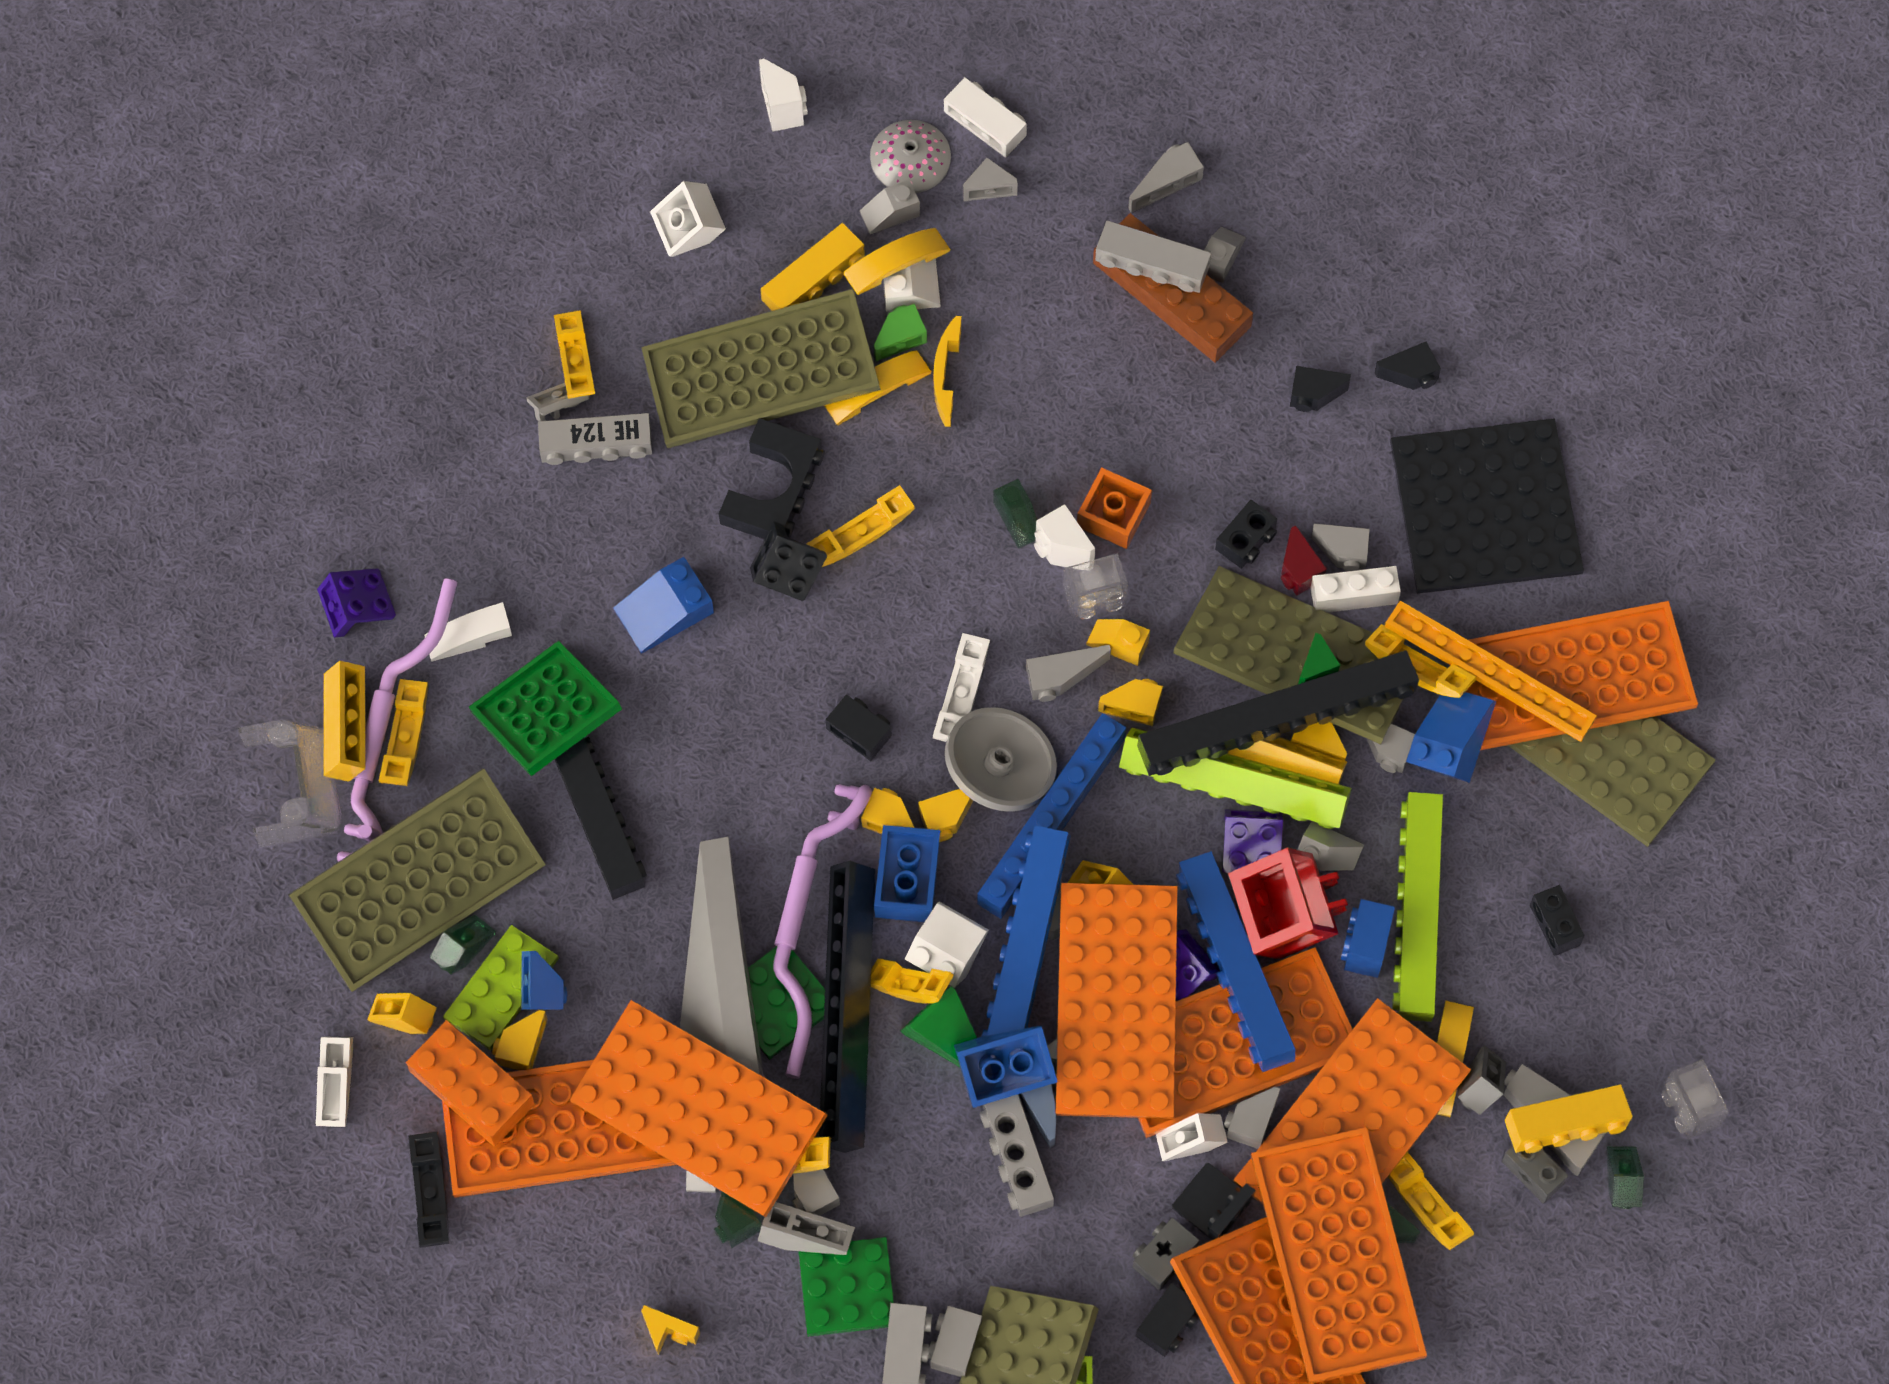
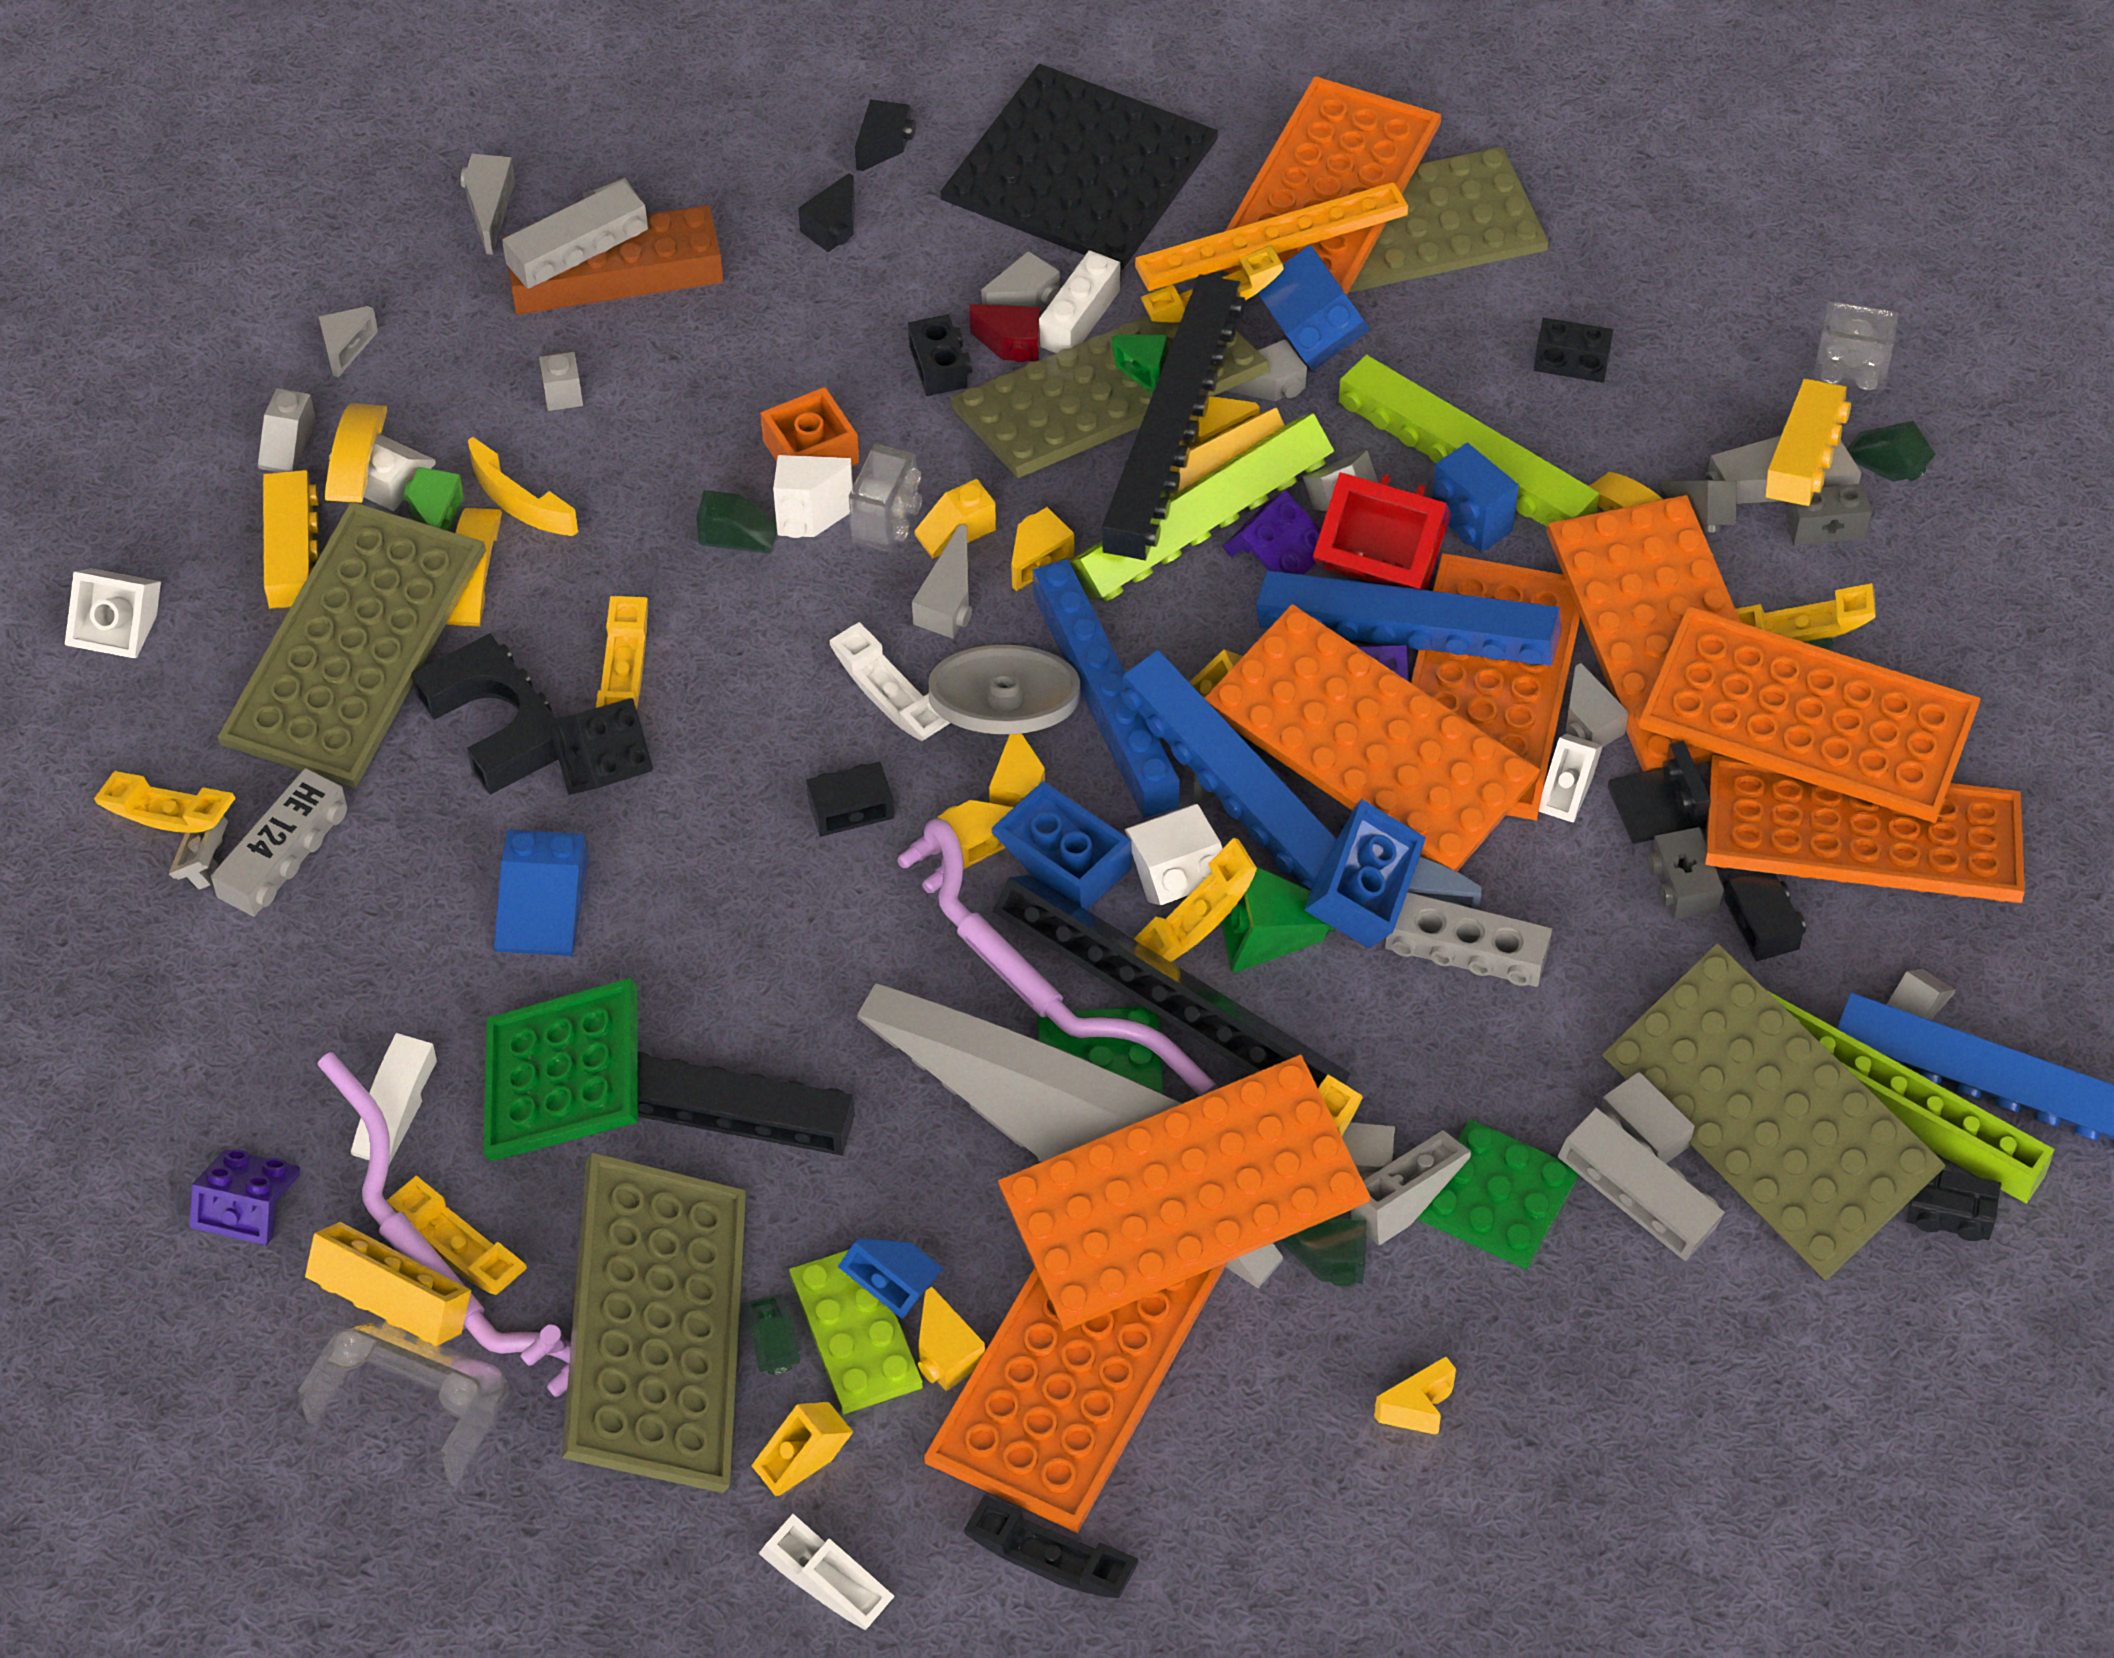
camera: 55 degrees left, 15 degrees down
(470, 1083) = (959, 1413): orange brick -> none
(782, 96) = (62, 442): white slope -> none
(923, 165) = (237, 388): light grey dish -> none
(985, 117) = (268, 300): white brick -> none
(1056, 326) = (560, 380): none -> light grey slope

